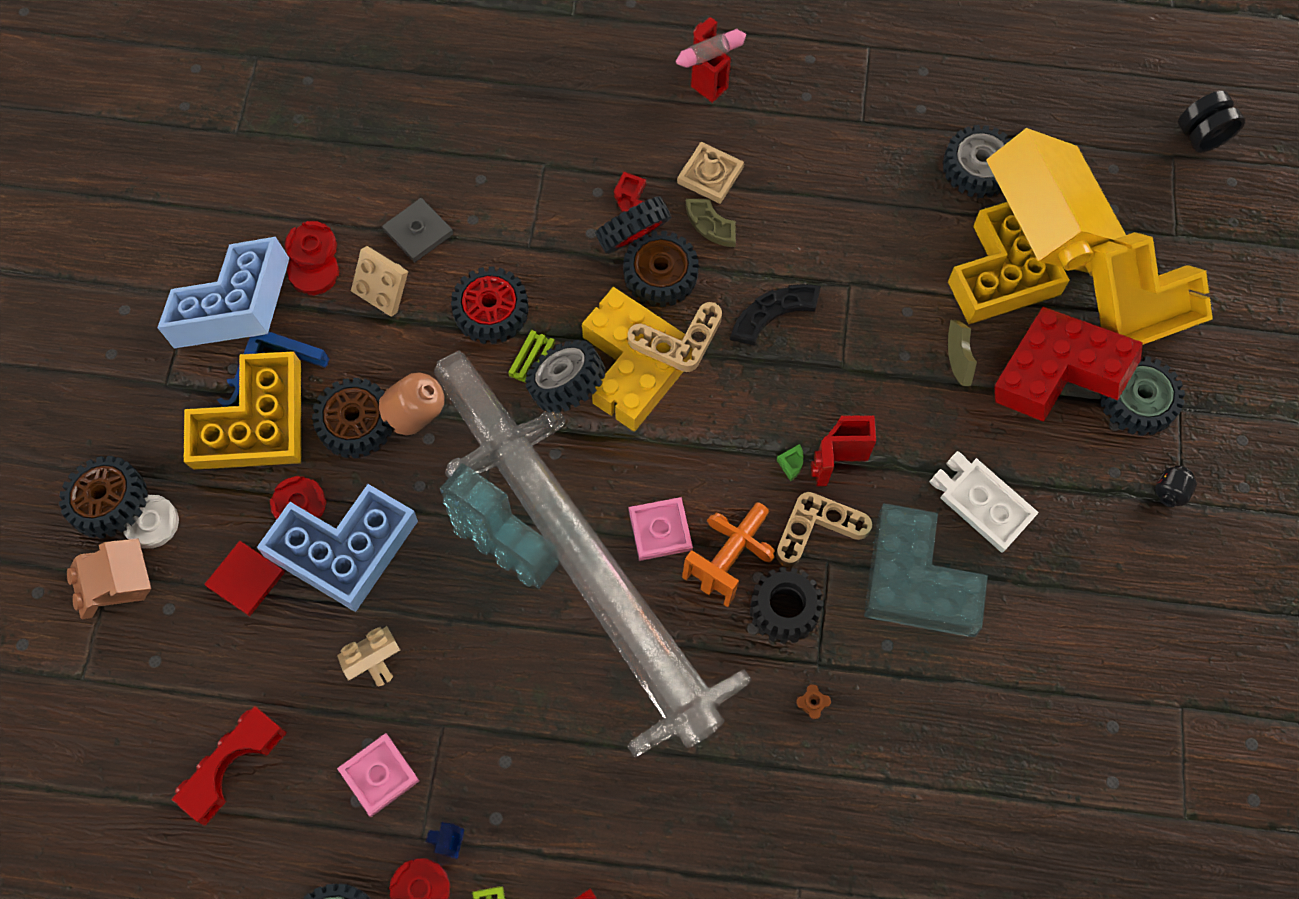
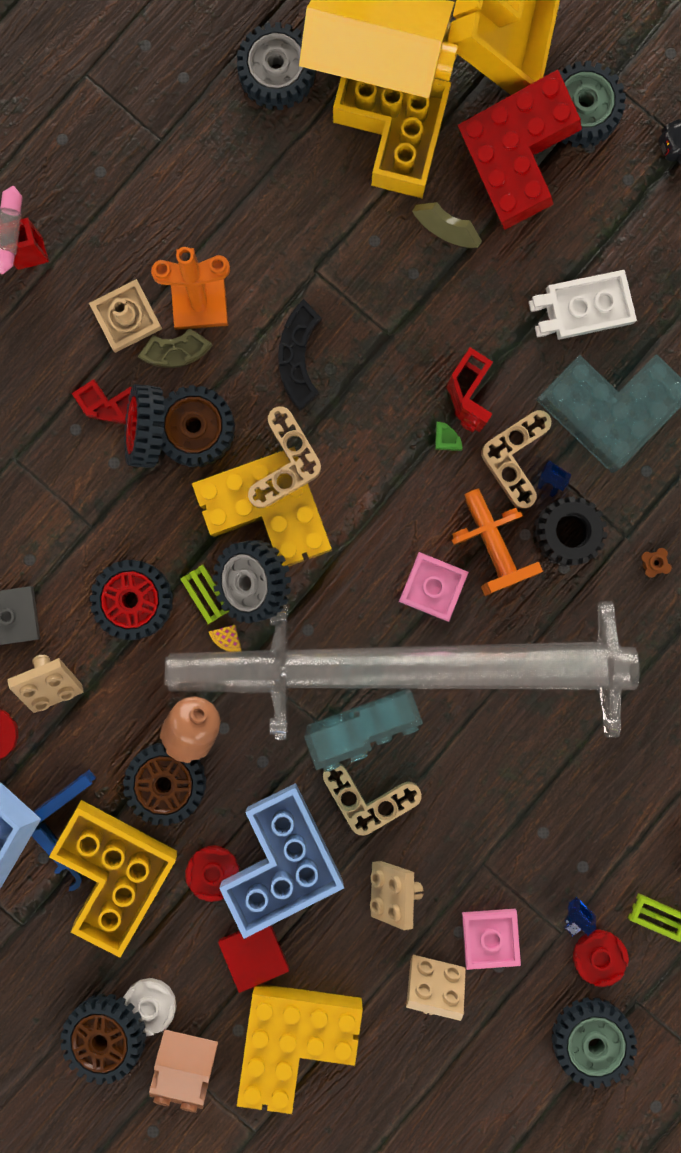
camera: 60 degrees left, 20 degrees up
(184, 639) = (288, 1027): none -> yellow piece
(202, 793) = (420, 1084): red arch -> none
(304, 744) = (436, 987): none -> tan plate
(430, 586) = (360, 807): none -> tan beam
(507, 393) = (226, 638): none -> yellow tile
(767, 209) = (195, 289): none -> orange piece
(824, 565) = (555, 476): none -> clear blue tile

